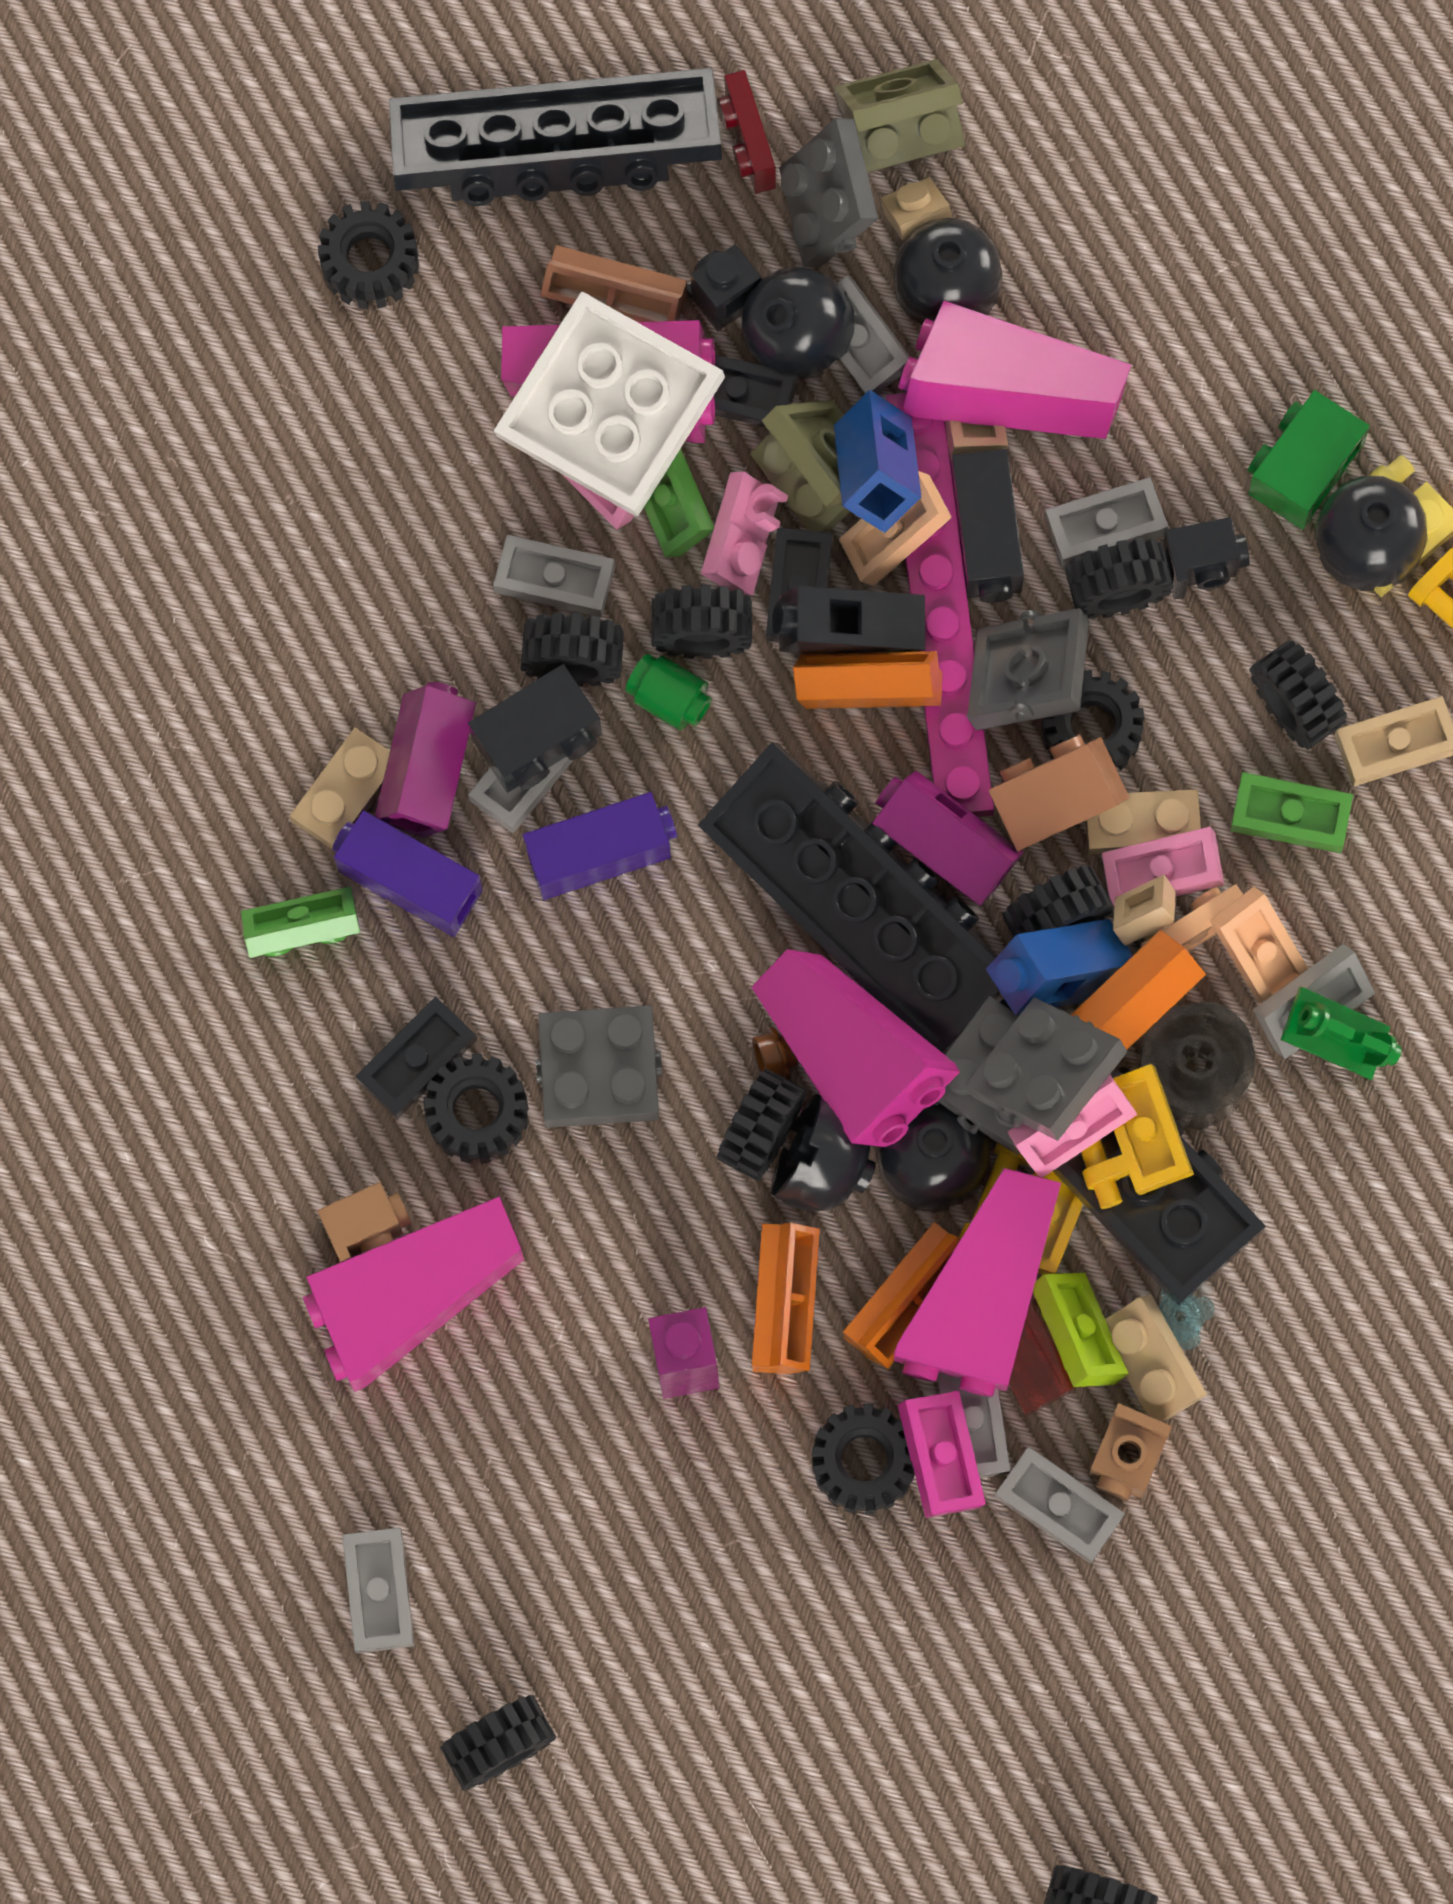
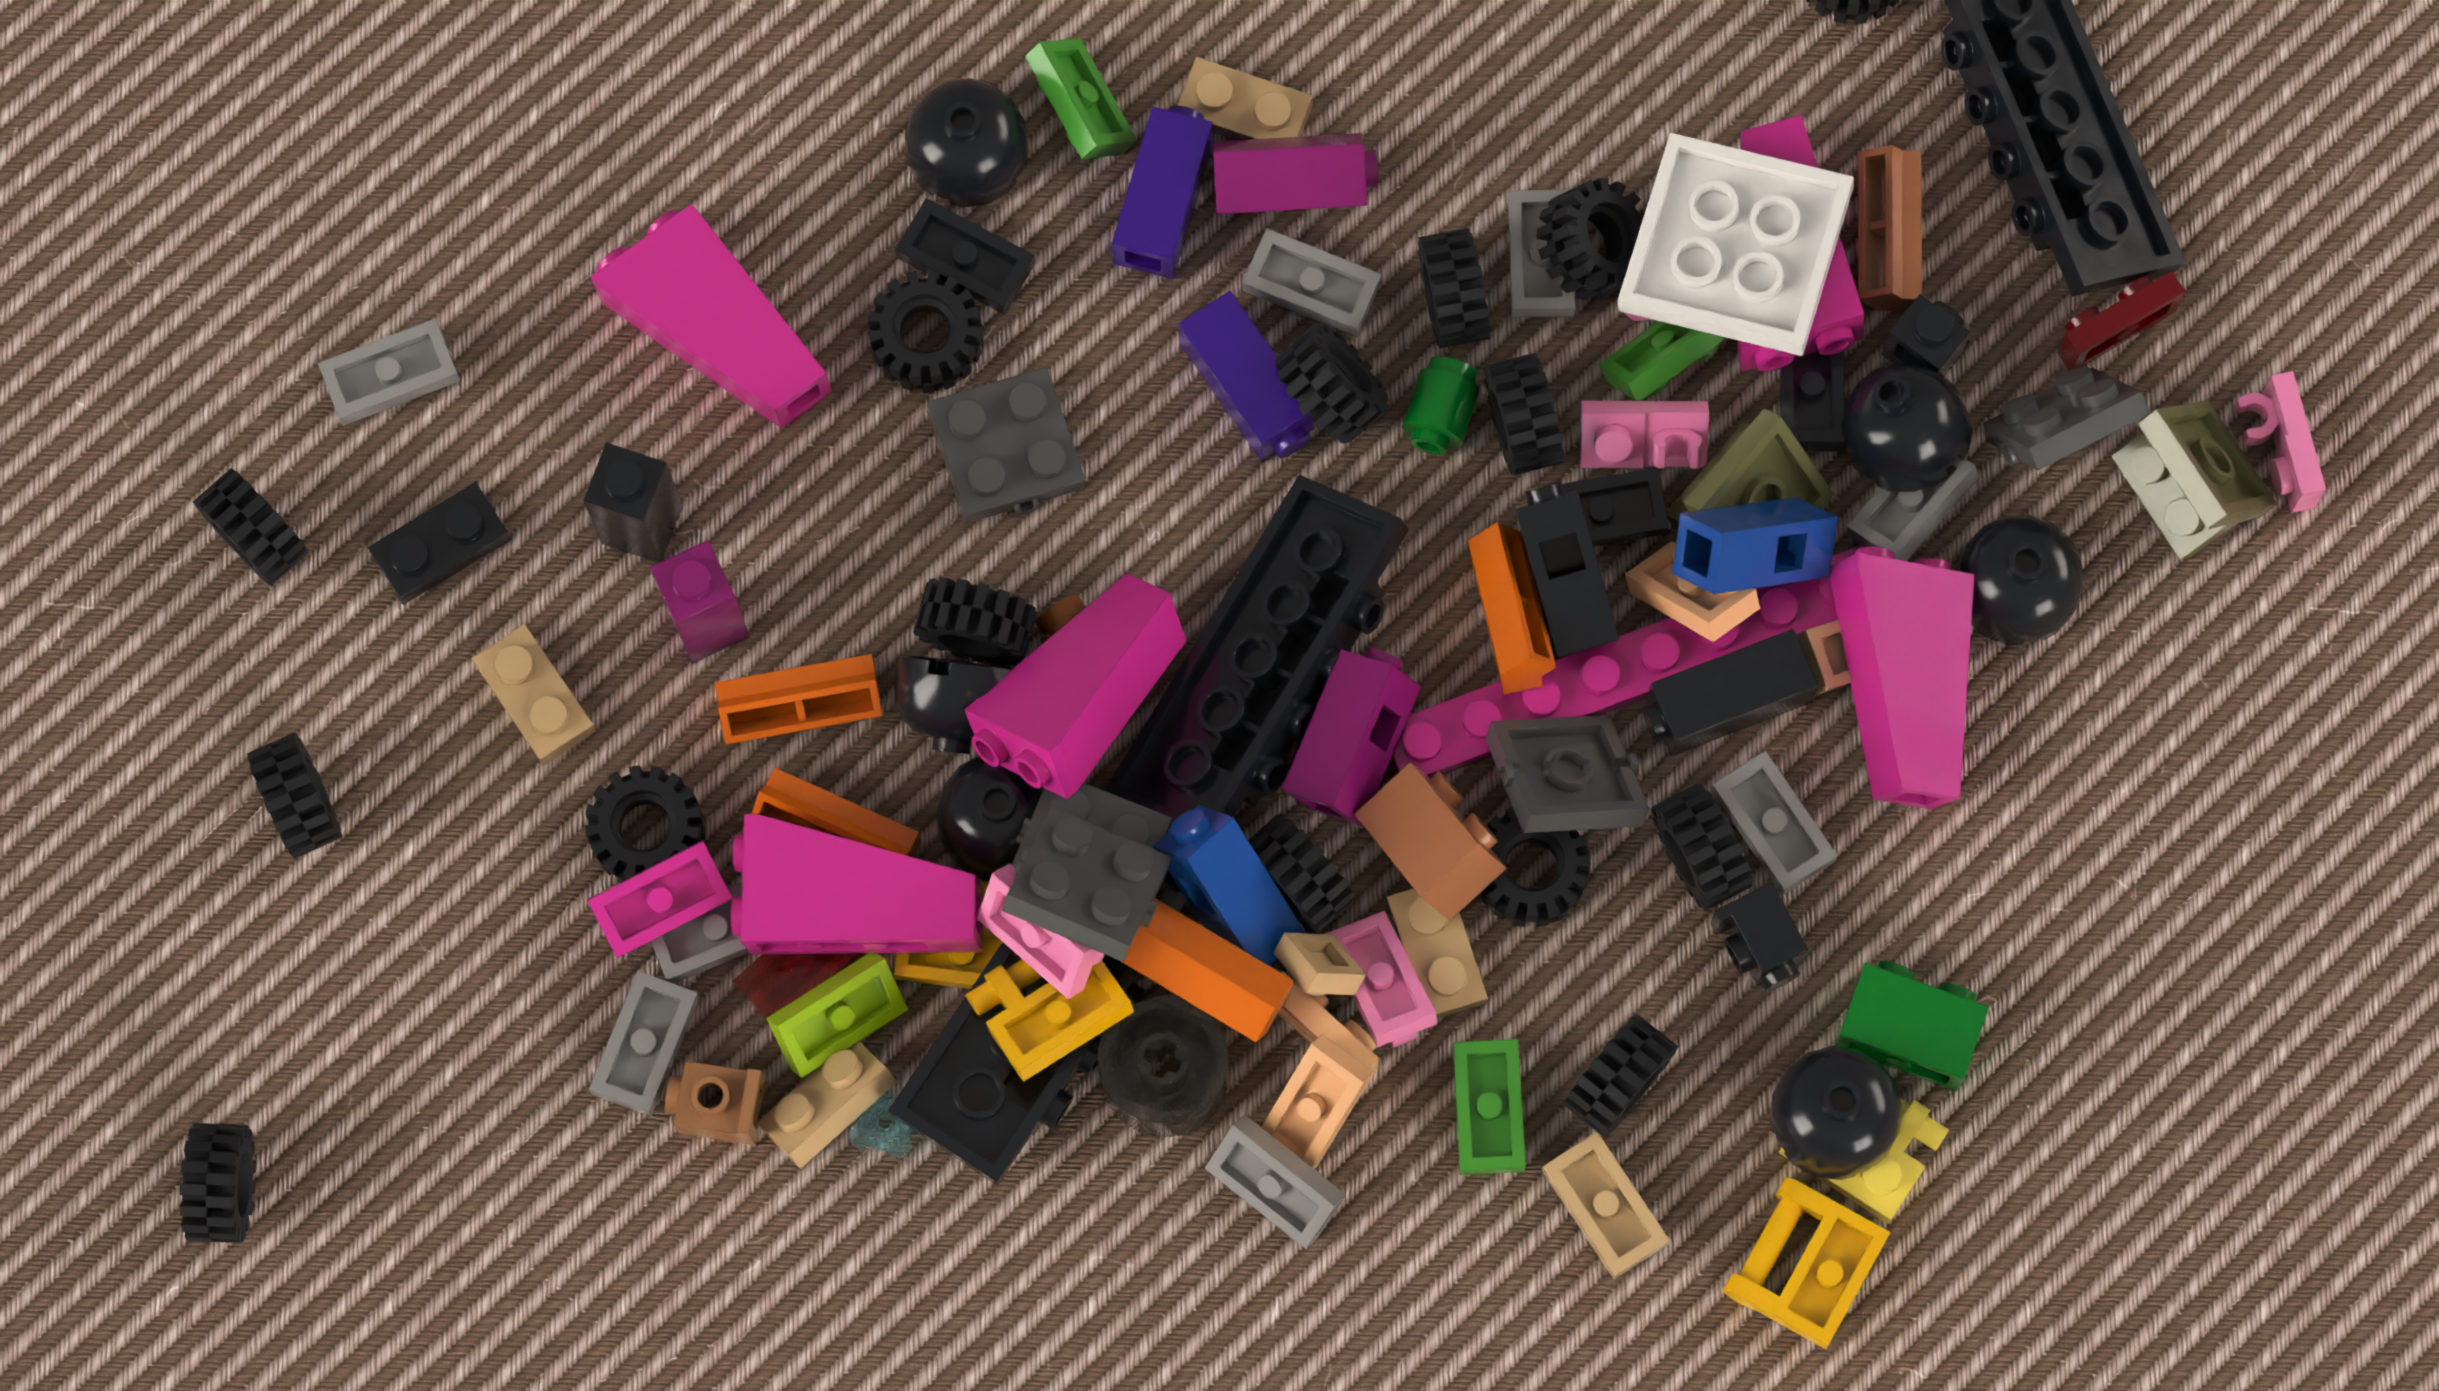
camera: 75 degrees right, 0 degrees up
(309, 1032) = (966, 142): none -> black cylinder
(364, 1221) = (770, 249): medium nougat brick -> none
(536, 730) = (1348, 272): black brick -> none
(549, 1584) = (439, 543): none -> black plate
(560, 523) = (1569, 239): none -> black tyre
(576, 1389) = (633, 502): none -> black brick
(630, 771) = (1332, 383): none -> black tyre
(713, 1531) = (534, 694): none -> tan plate
(761, 1757) = (294, 795): none -> black tyre
(901, 30) = (2295, 465): none -> bright pink plate
(914, 206) = (2087, 523): tan plate -> none
(1339, 1034) = (1242, 1214): green hinge -> none

